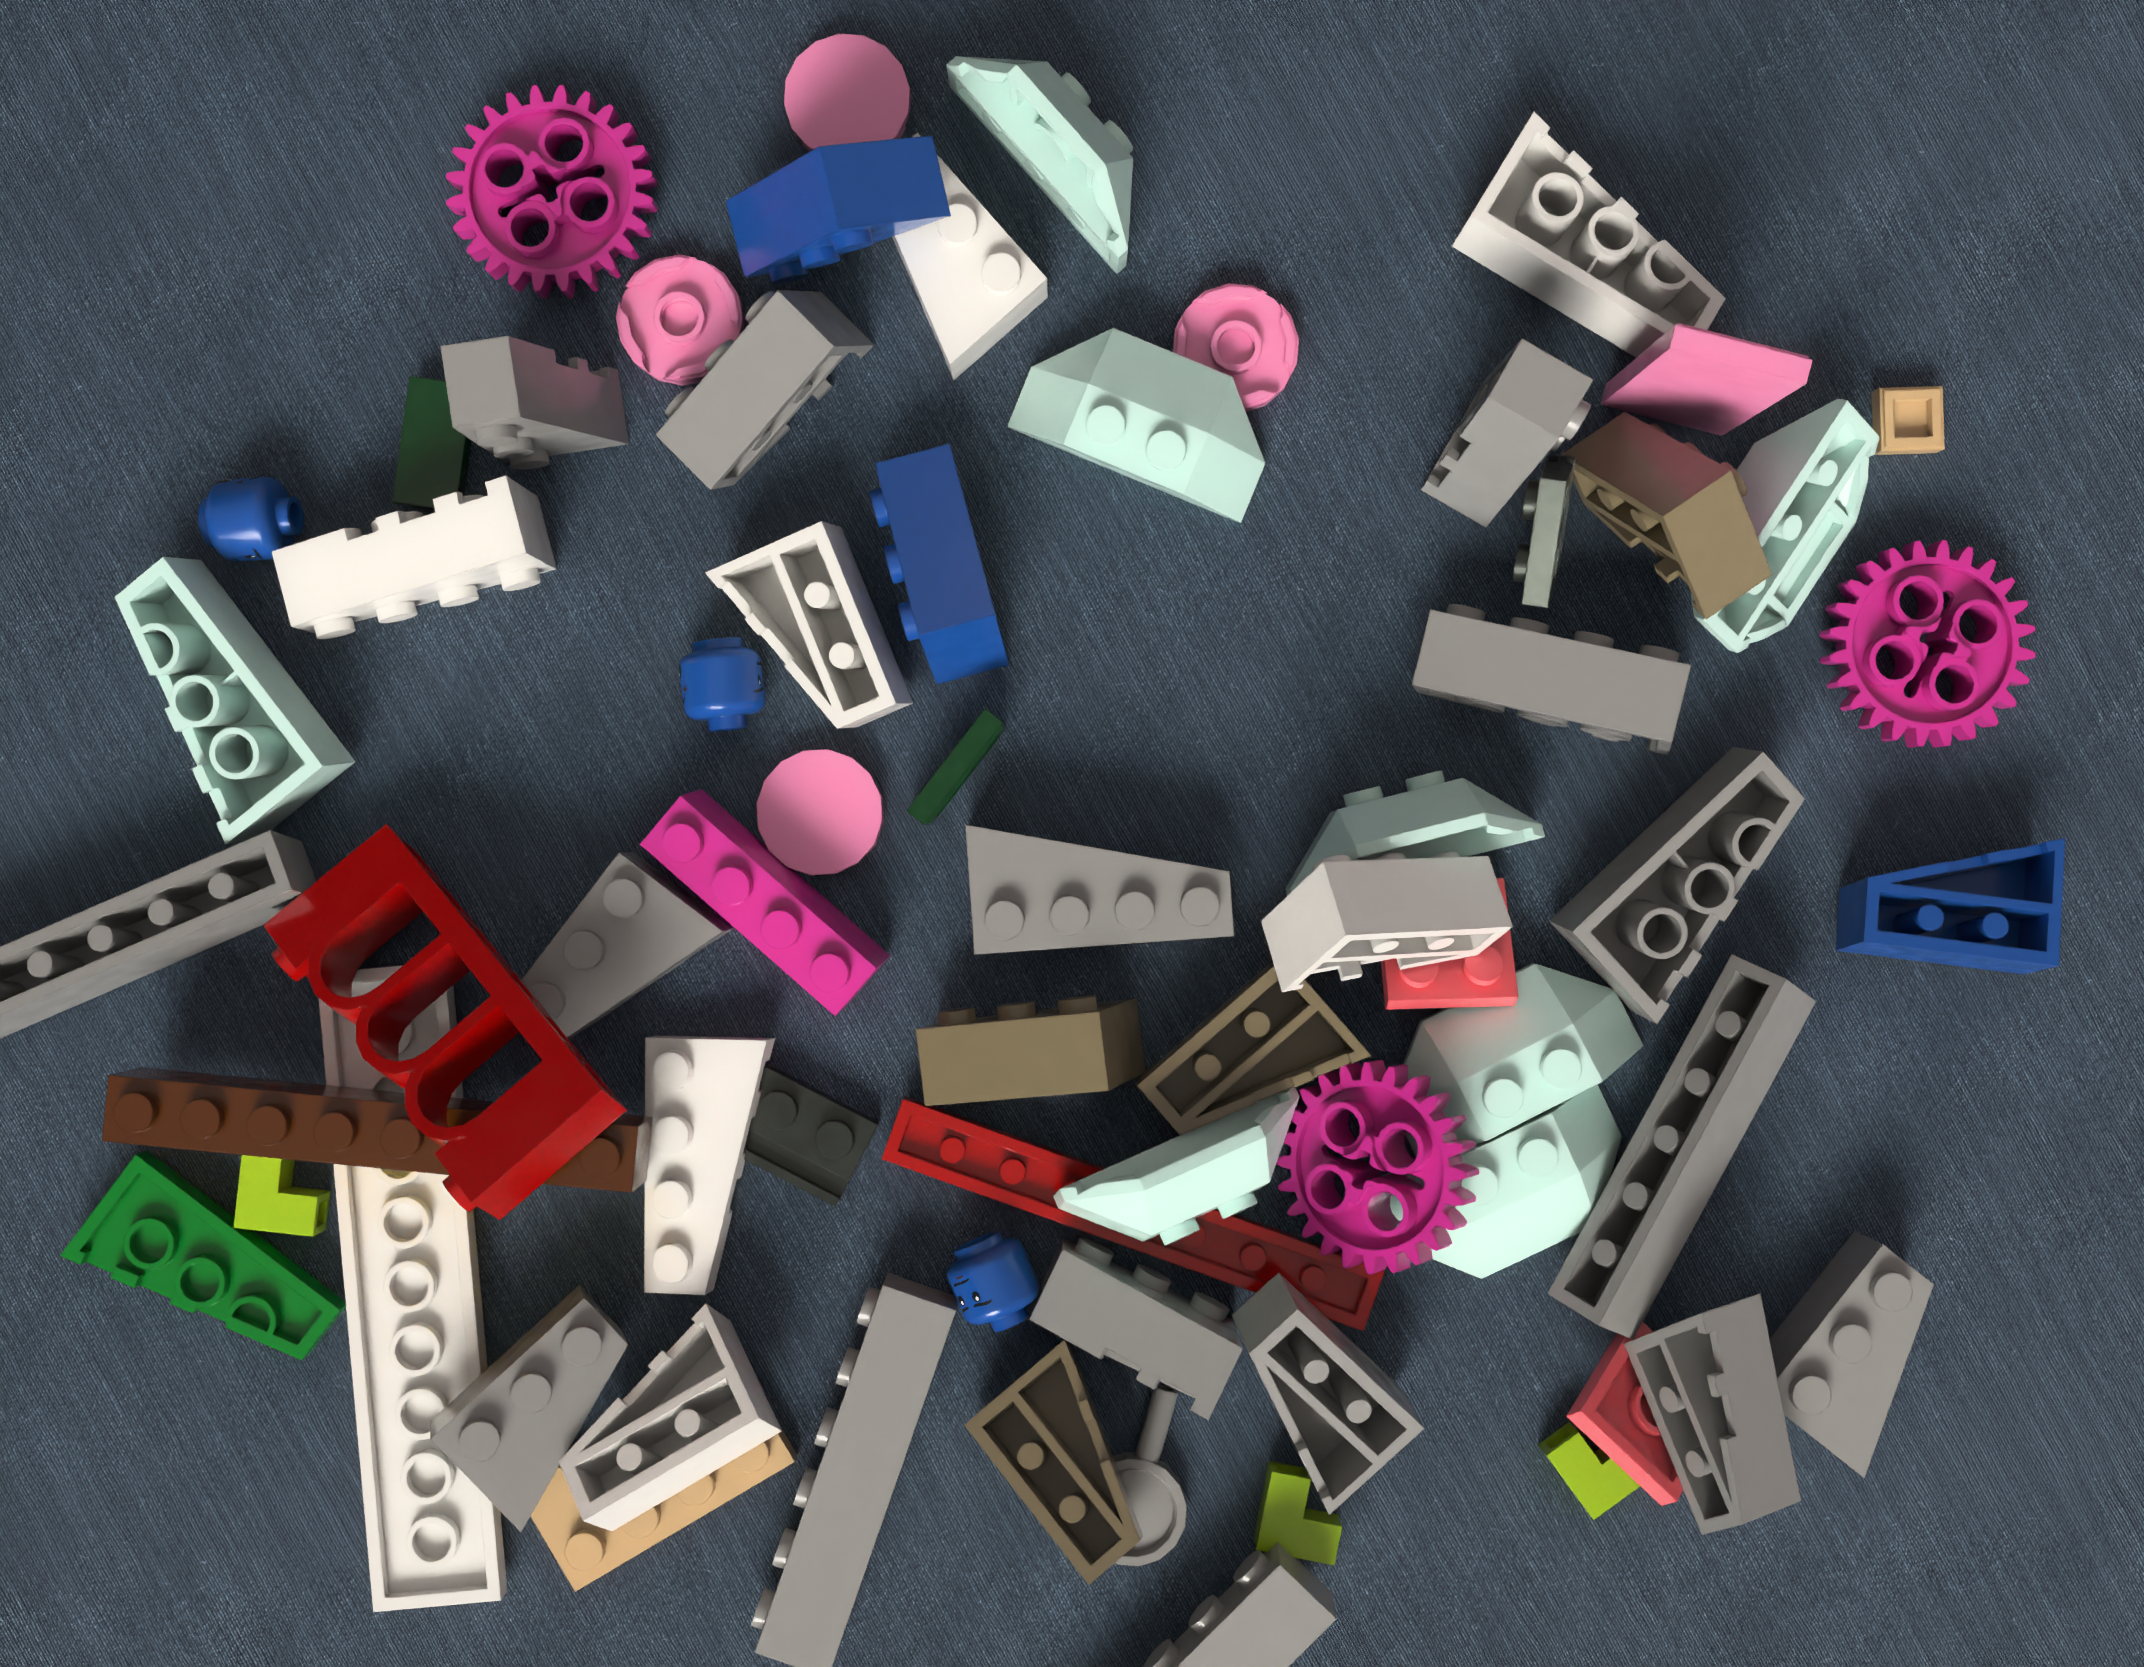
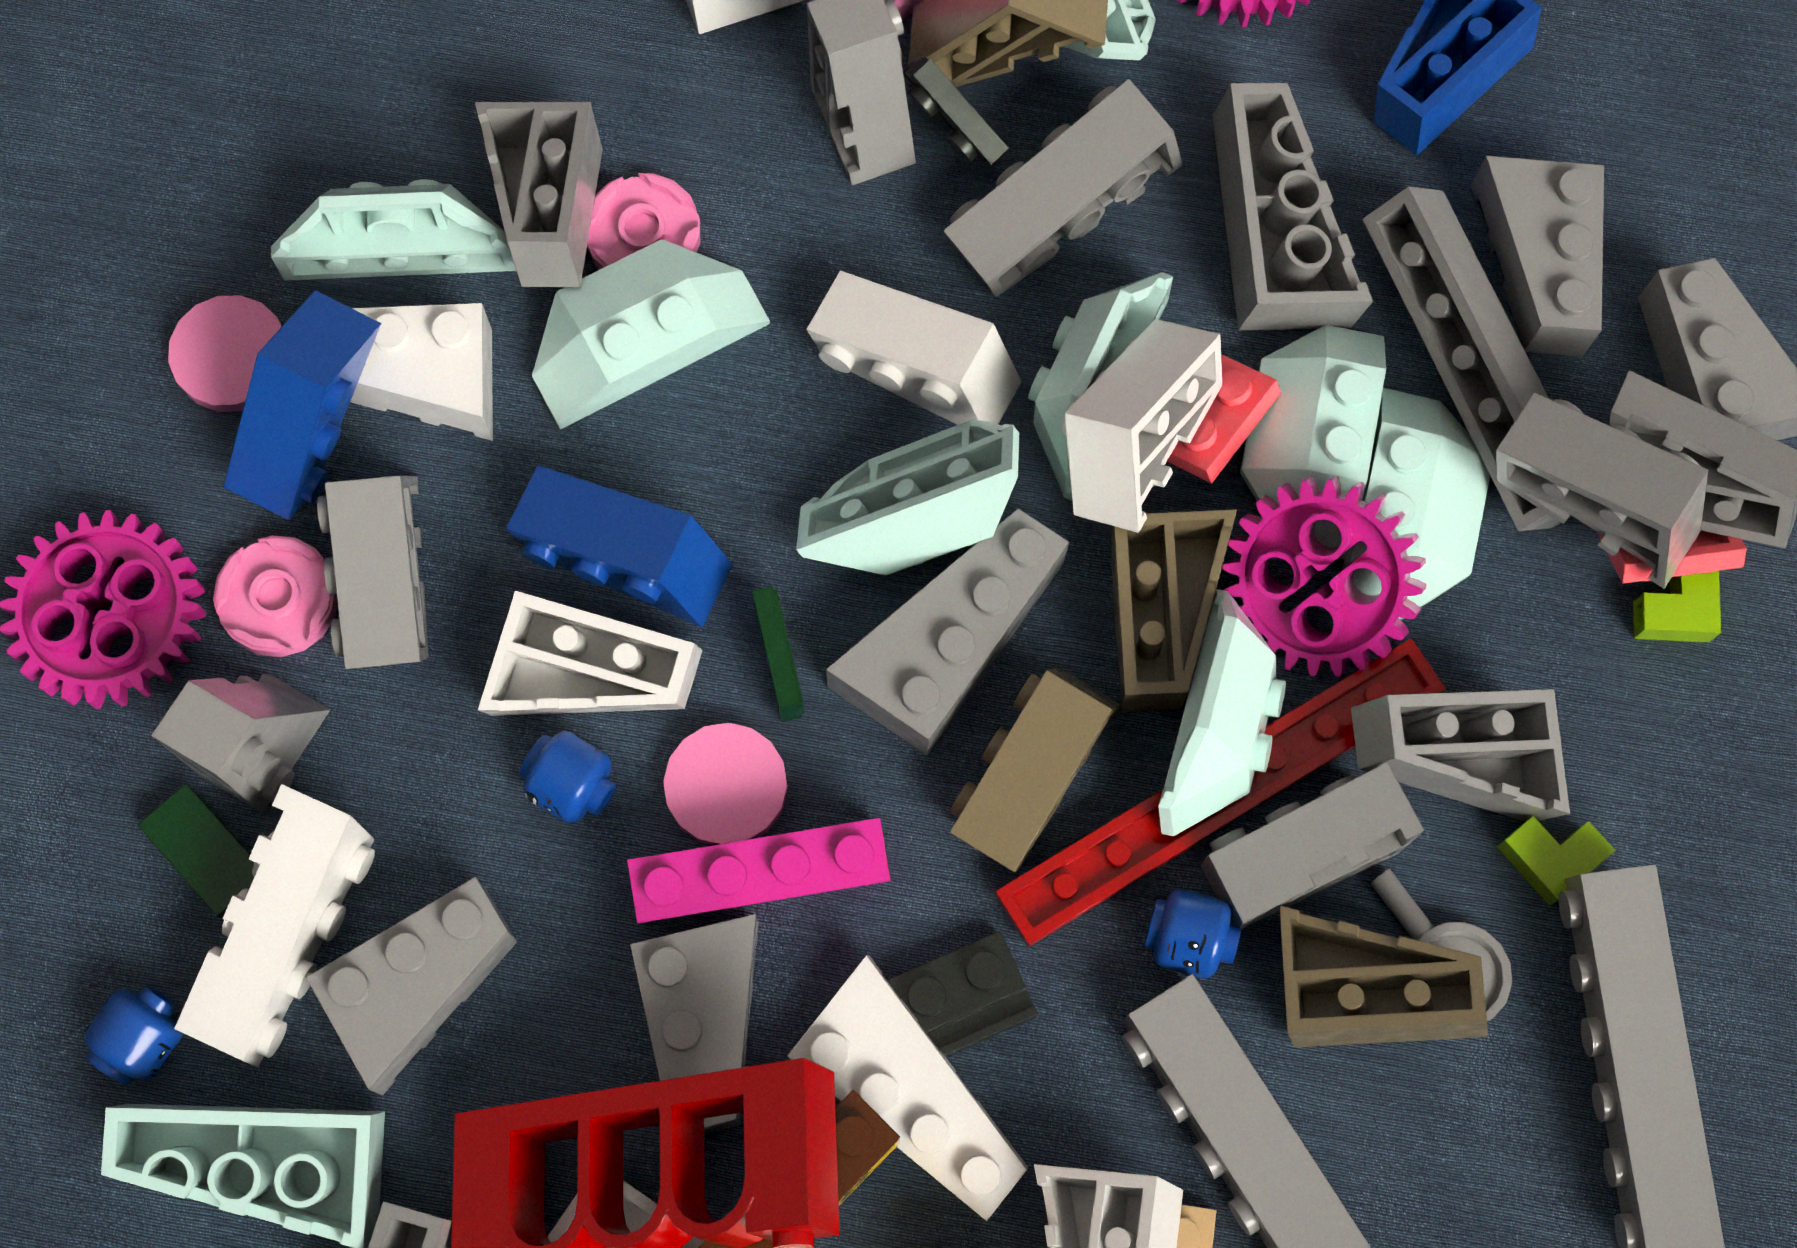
camera: 50 degrees left, 15 degrees down
(455, 697) = (410, 979): none -> light grey wedge
(1171, 776) = (915, 501): none -> light aqua wedge
(1196, 238) = (545, 184): none -> light grey wedge
(1305, 669) = (915, 349): none -> white wedge
(1634, 1349) = (1607, 480): none -> light grey wedge
(1835, 1129) = (1549, 246): none -> light grey wedge

